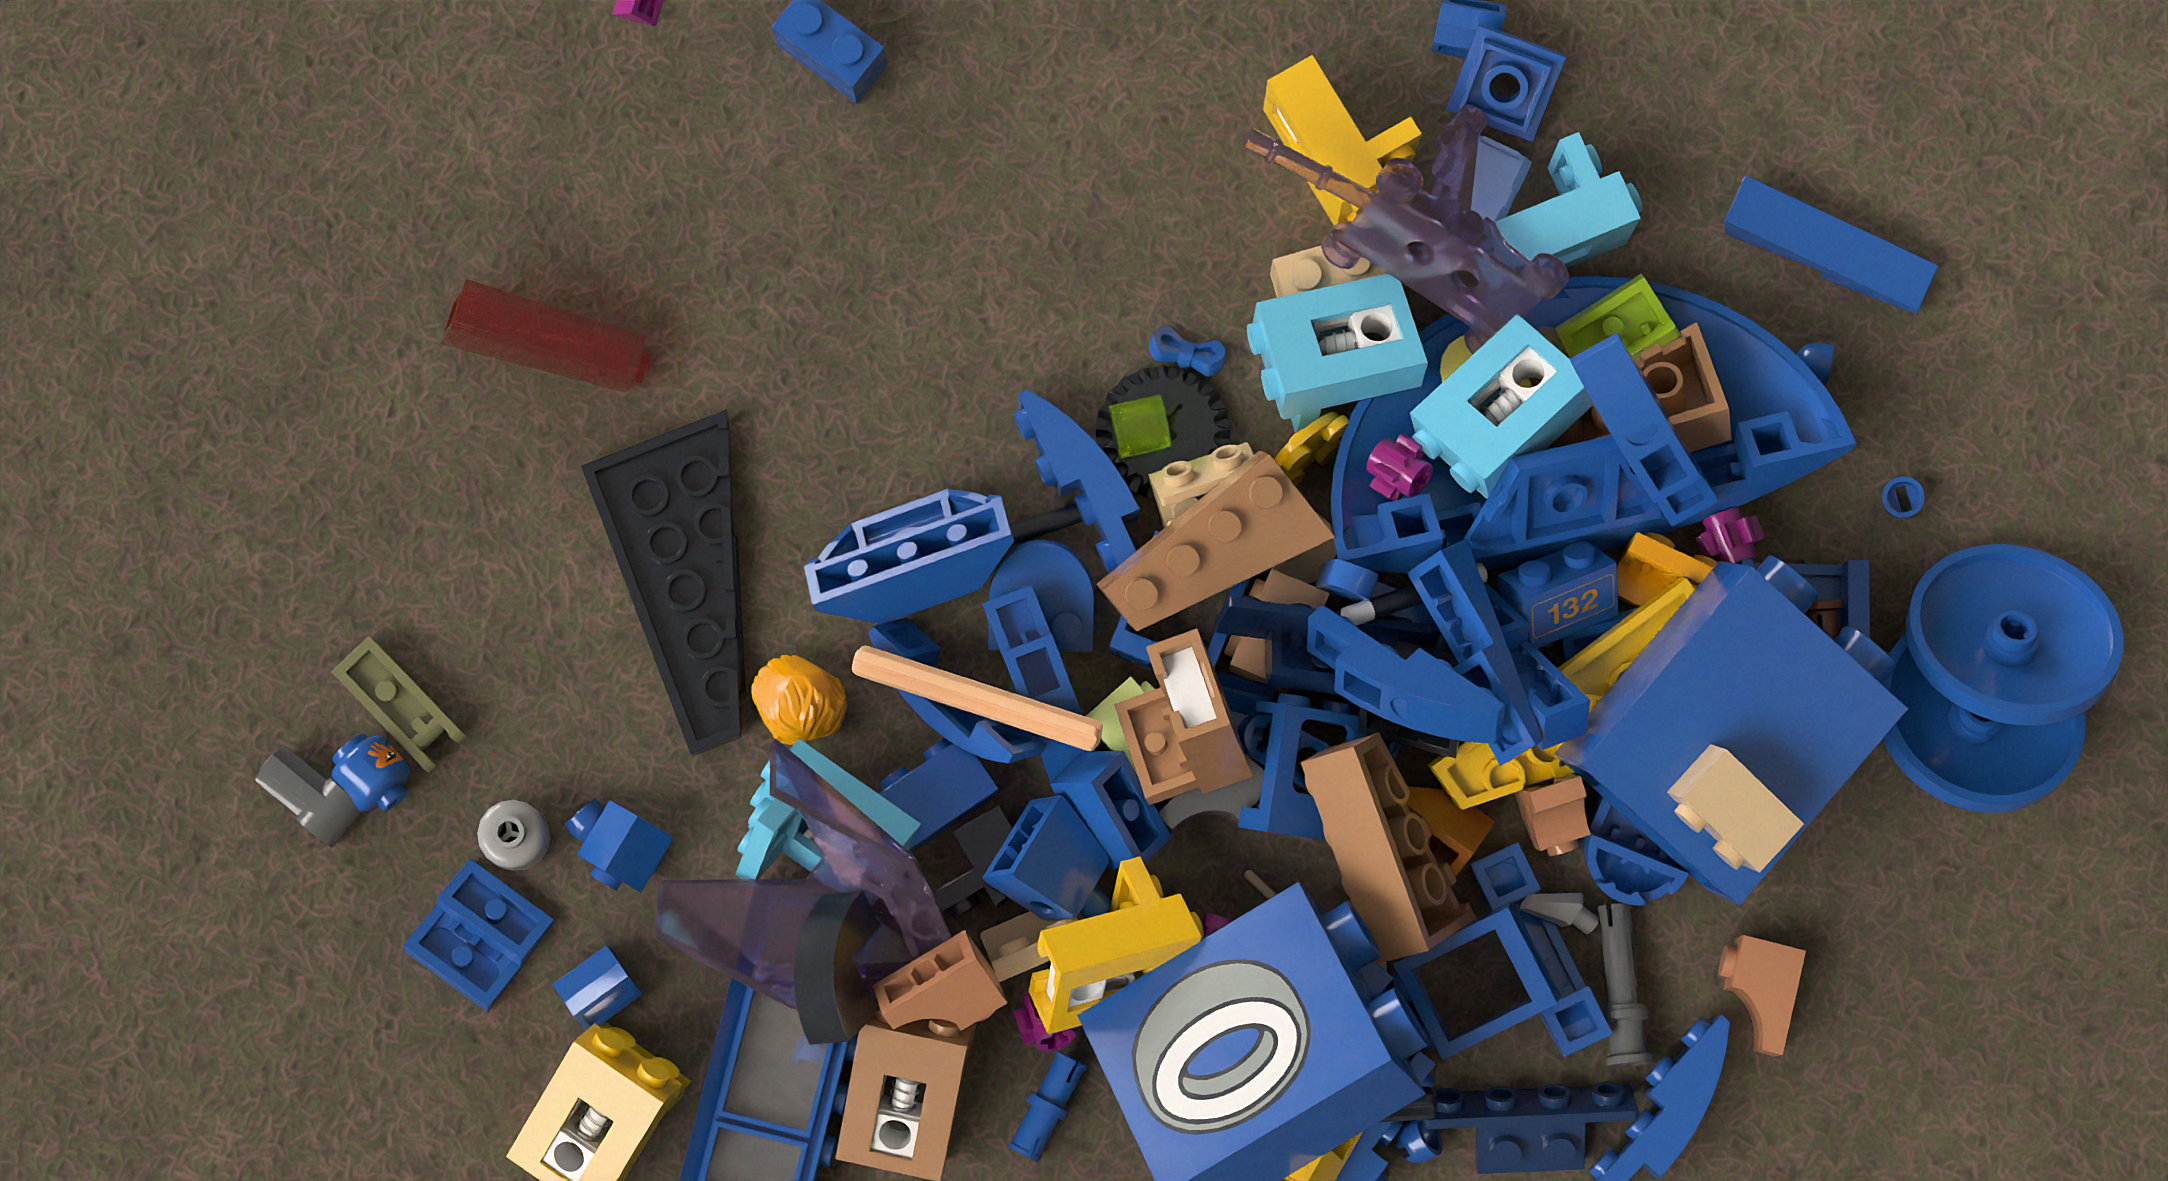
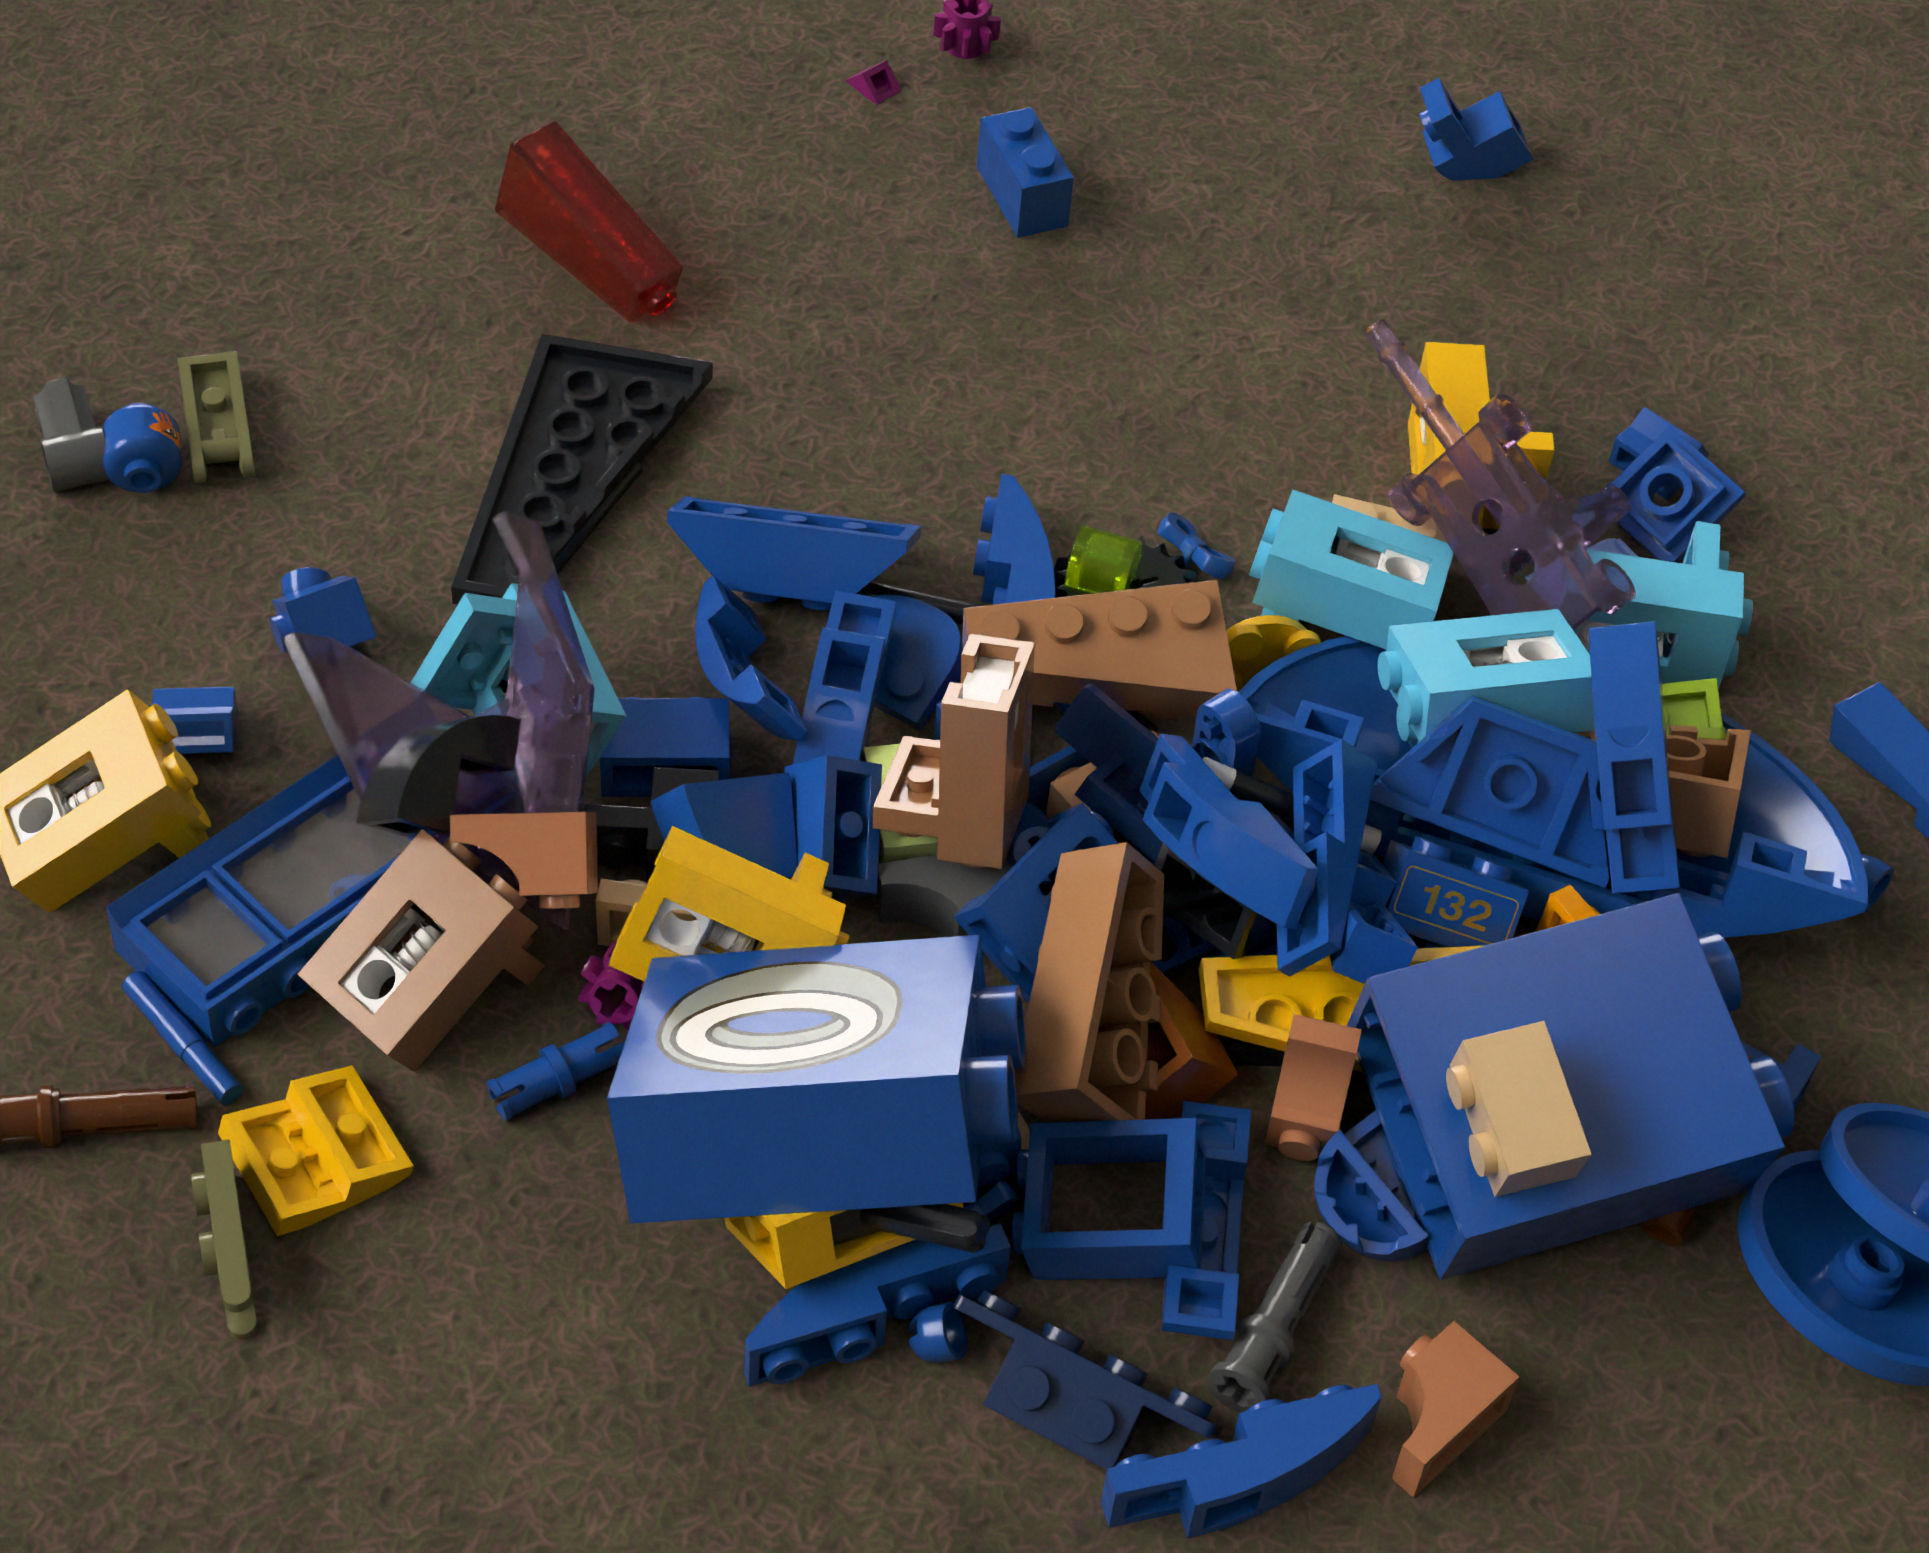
camera: 25 degrees right, 30 degrees down
(478, 935) = (121, 628): blue slope -> none
(530, 842) = (227, 556): light grey head -> none
(798, 699) = (605, 604): light orange hair -> none
(977, 698) = (770, 658): light nougat axle -> none
(1399, 468) = (1348, 684): magenta gear -> none
(1561, 909) = (1255, 1199): light grey bar -> none
(1892, 503) = (1898, 1026): blue hinge -> none

